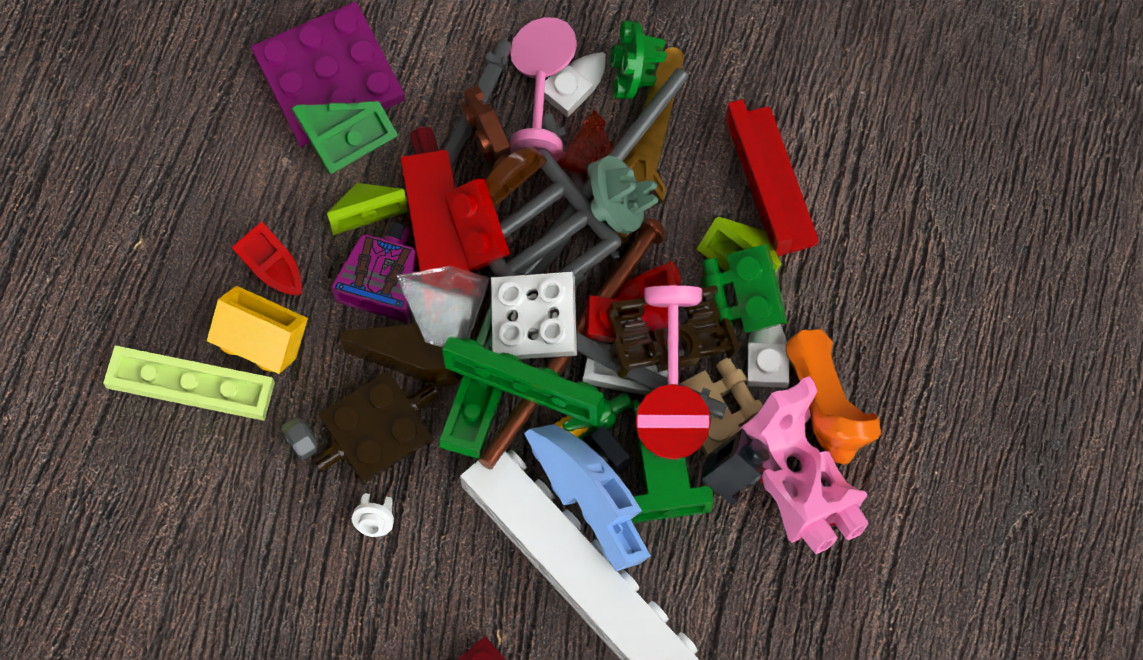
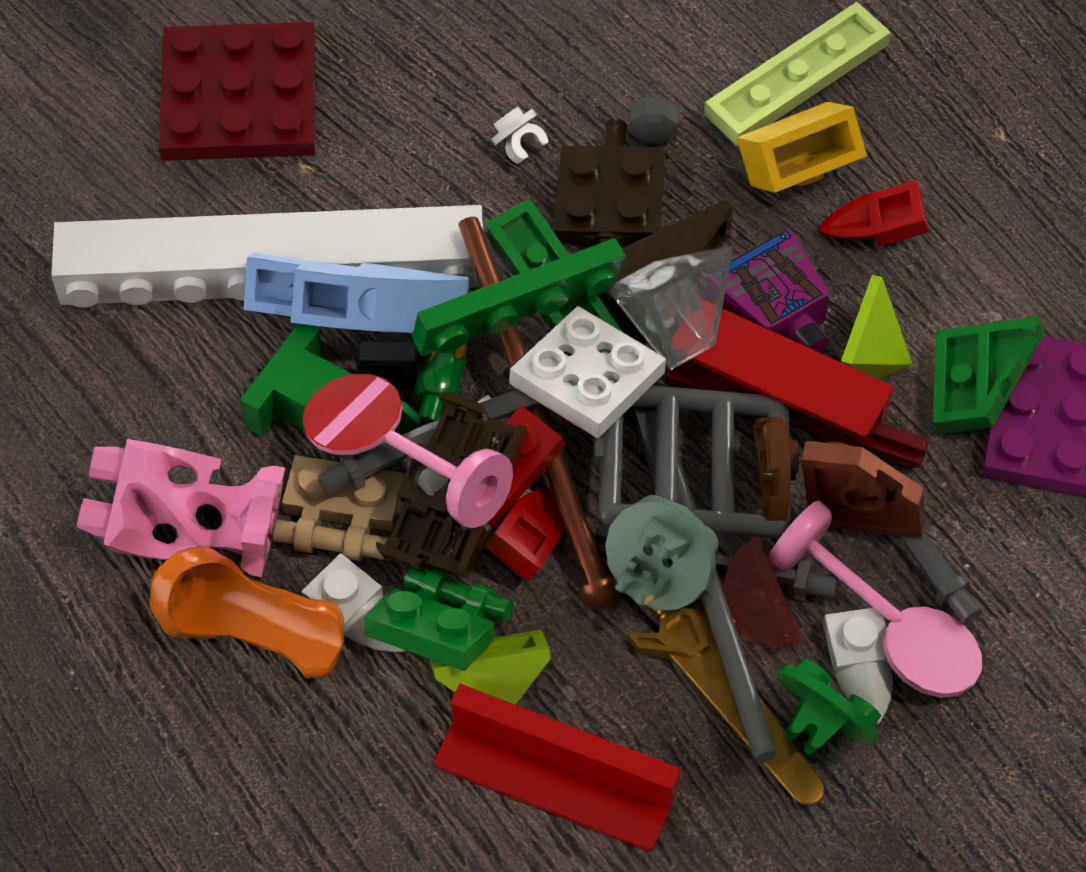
camera: 130 degrees right, 10 degrees down
(477, 224) = (761, 393): red plate -> none
(735, 465) = (246, 445): black brick -> none

